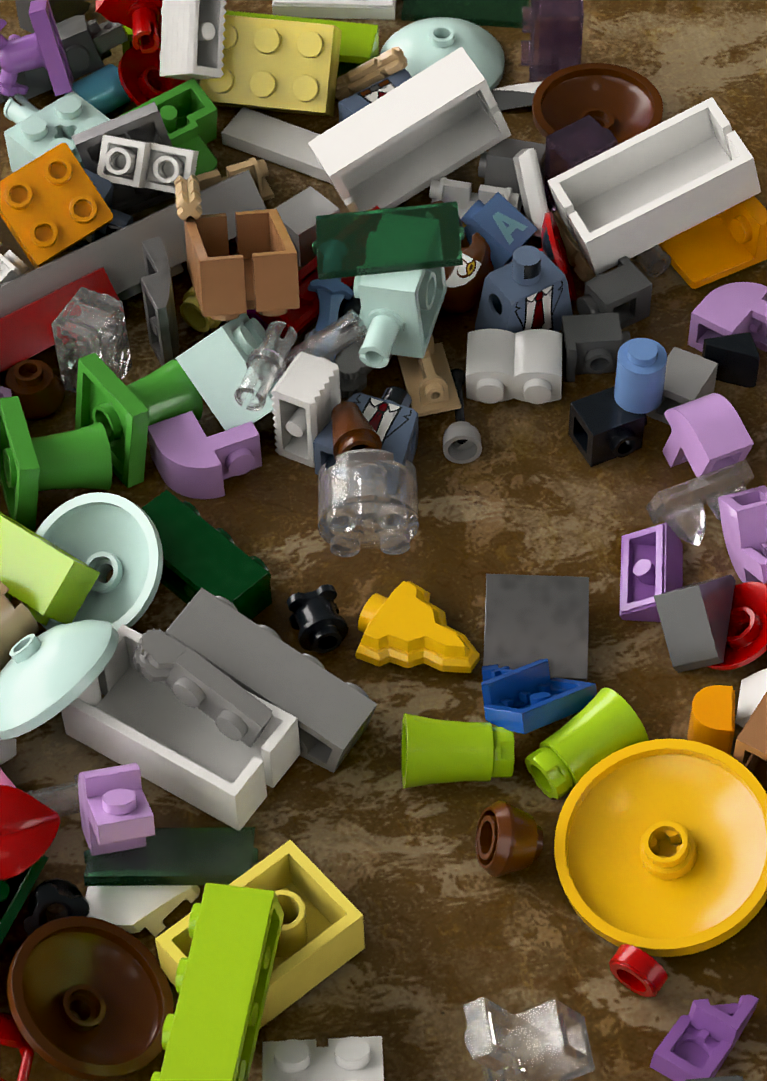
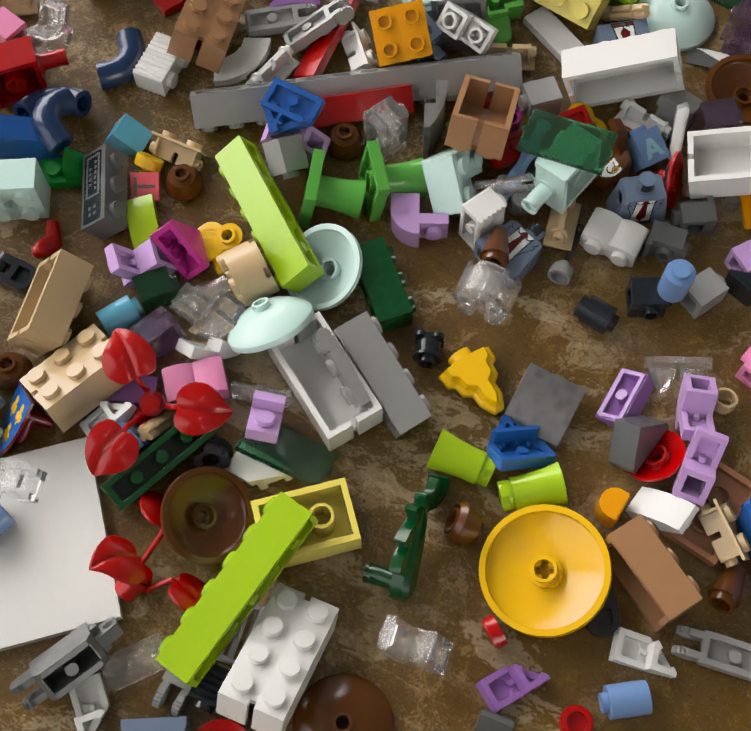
camera: 25 degrees right, 15 degrees up
(188, 197) = (474, 62): tan axle -> none
(265, 365) = (466, 187): clear pin -> none
(456, 956) = (405, 563): none -> dark green animal
(546, 475) = (597, 314): none -> black brick
(706, 435) = (697, 332): lavender brick -> none

